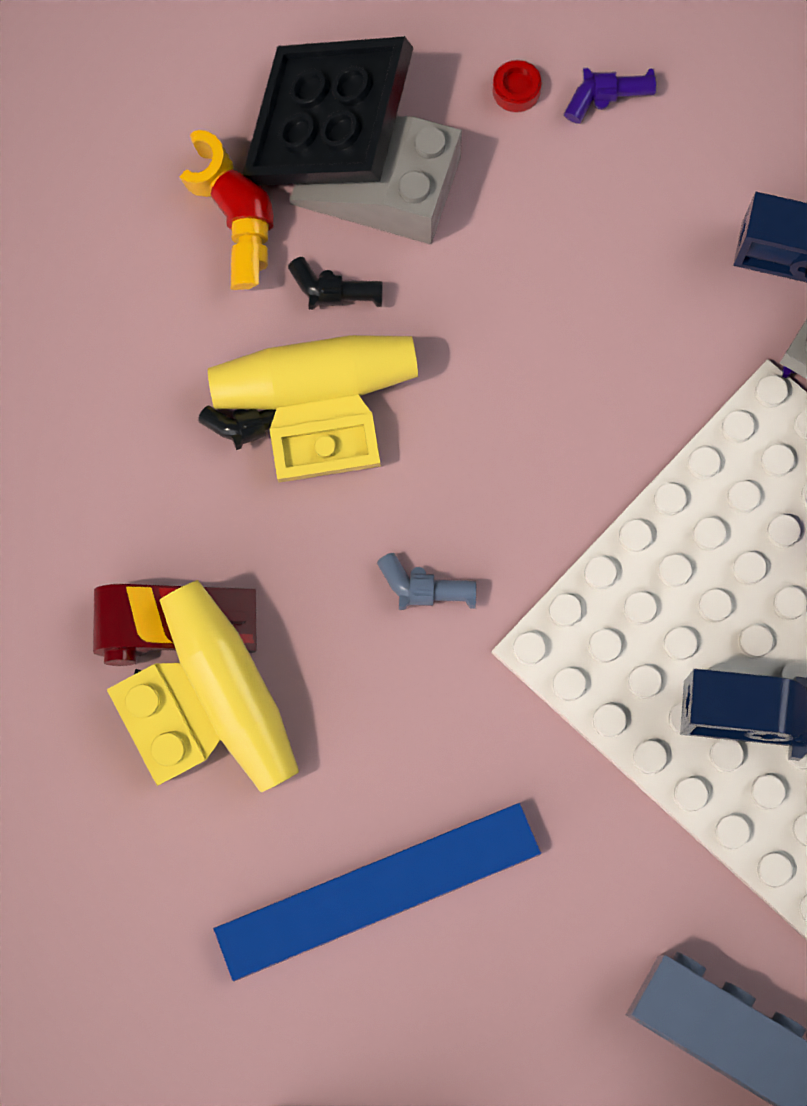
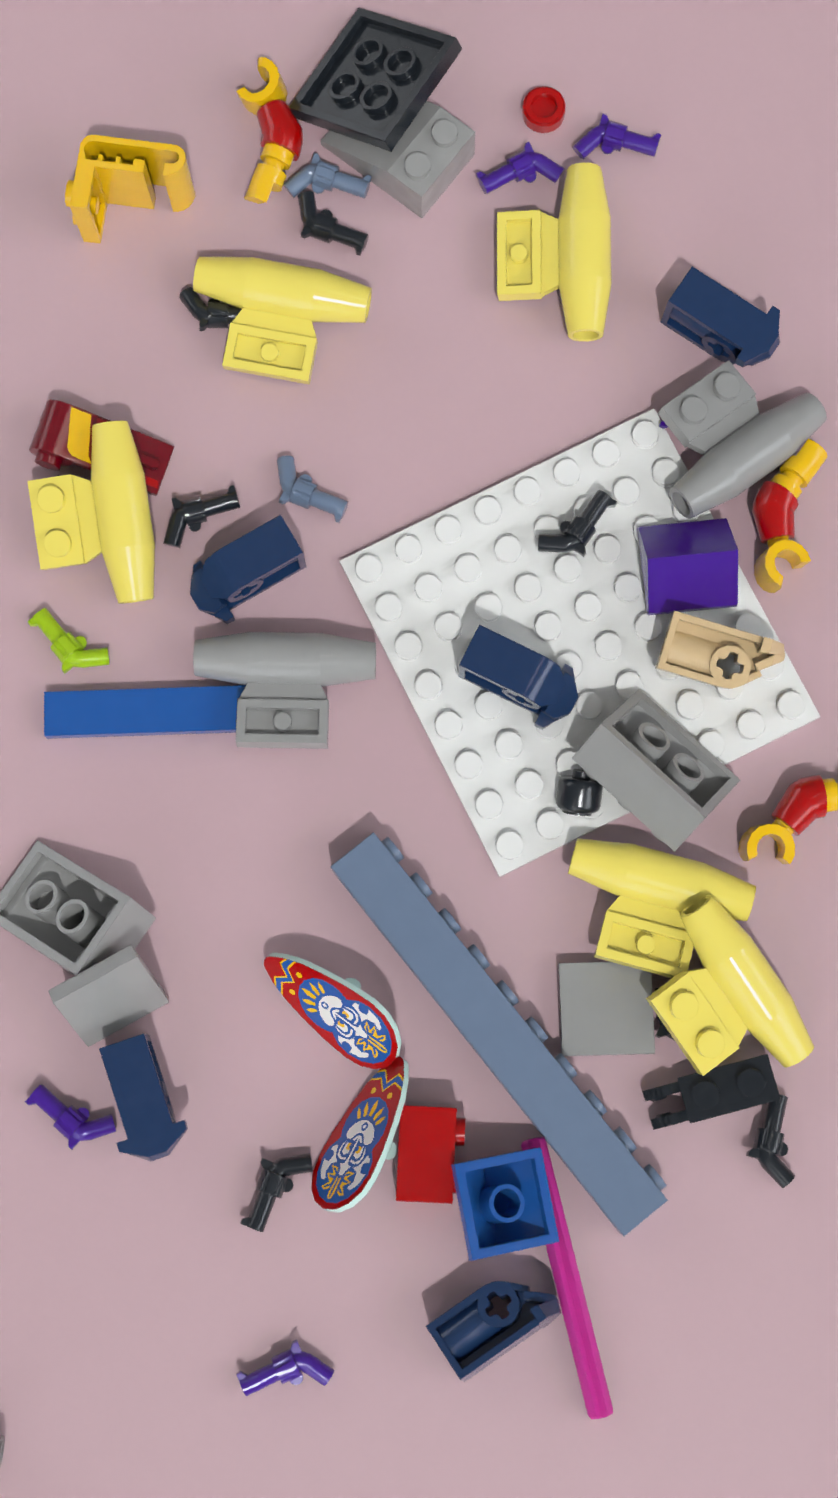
camera: 20 degrees right, 5 degrees up
(89, 308) = (124, 174): none -> yellow piece
(220, 864) = (66, 646): none -> lime piece
(308, 655) = (194, 512): none -> black piece
(310, 236) = (326, 177): none -> sand blue piece
(392, 700) = (245, 569): none -> dark blue piece
(488, 810) = (284, 681): none -> light grey plate
(517, 154) = (520, 167): none -> dark purple piece
(609, 225) = (564, 253): none -> light yellow plate
(749, 519) = (578, 530): none -> black piece

